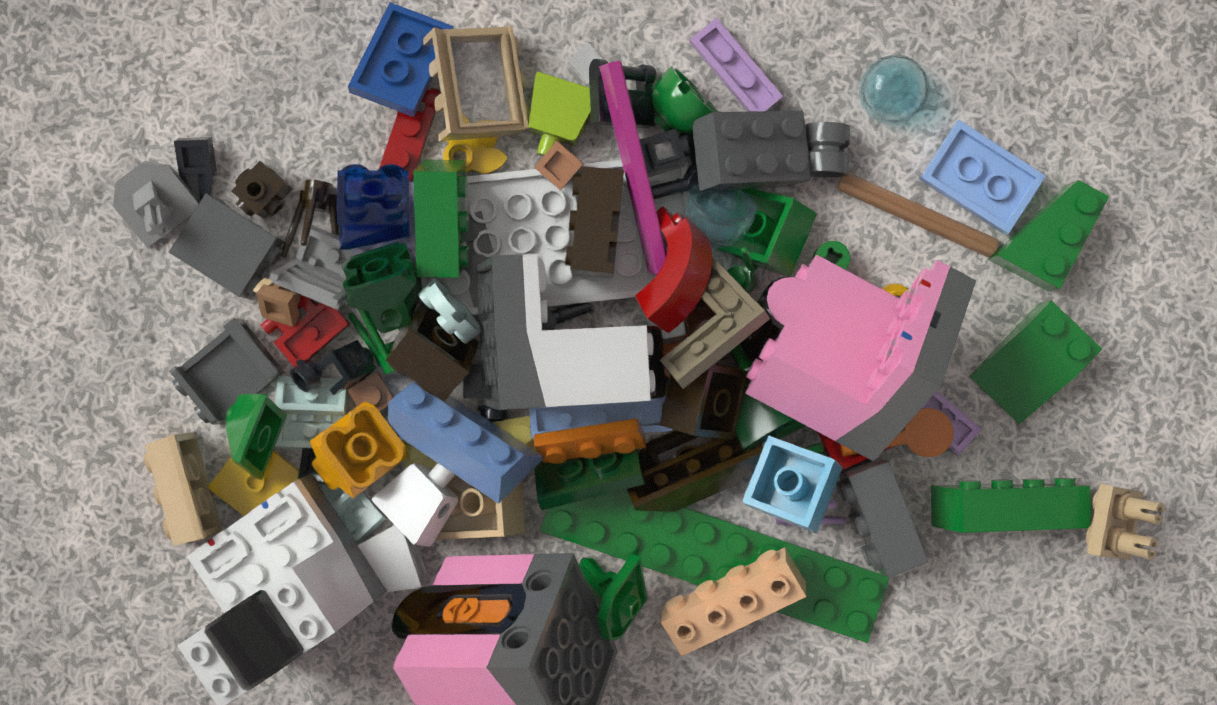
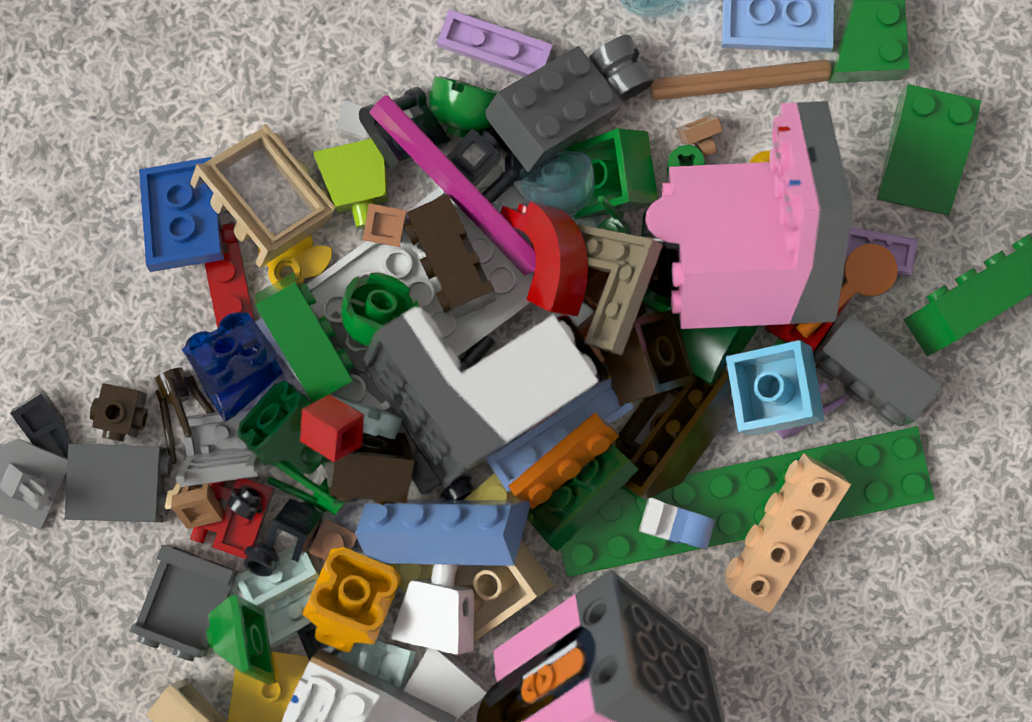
camera: 30 degrees left, 5 degrees down
(319, 323) = (245, 502): none -> black plate
(416, 308) = (332, 428): none -> red brick
(512, 228) = (372, 304): none -> green cylinder
(618, 594) = (676, 590): green piece -> none
(649, 543) = (676, 524): none -> leg
(858, 240) = (700, 134): none -> medium nougat tile

